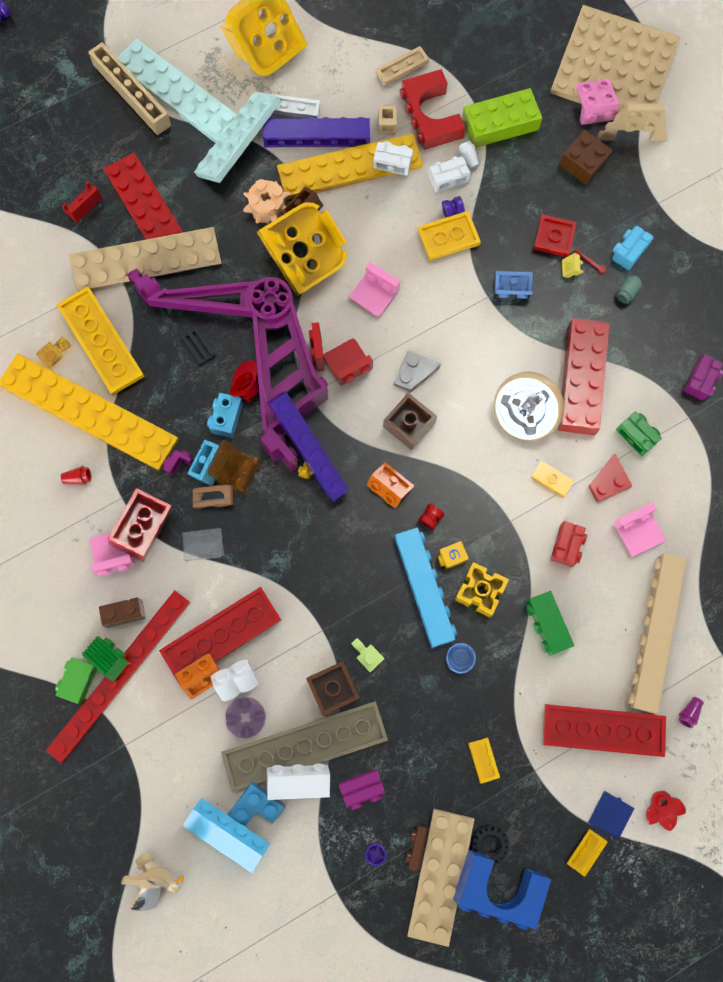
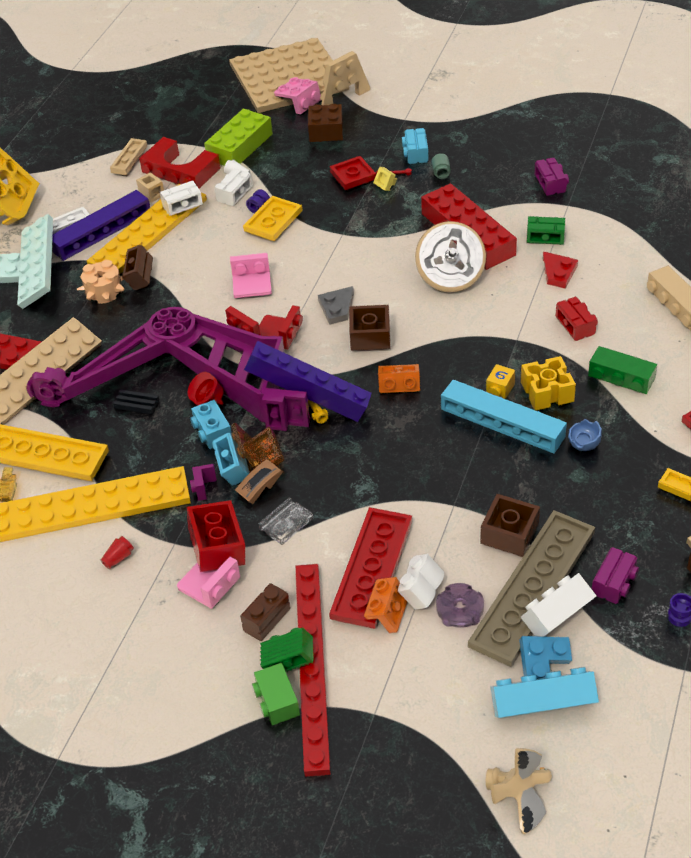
camera: 35 degrees left, 30 degrees down
(326, 255) = (171, 268): yellow piece -> none
(369, 656) = (511, 489): yellowish green plate -> none
(430, 517) = (454, 370): red wheel -> none
(513, 283) = (353, 212): medium blue bracket -> none
(552, 479) = (517, 295): yellow plate -> none
(639, 530) = (612, 278): bright pink bracket -> none

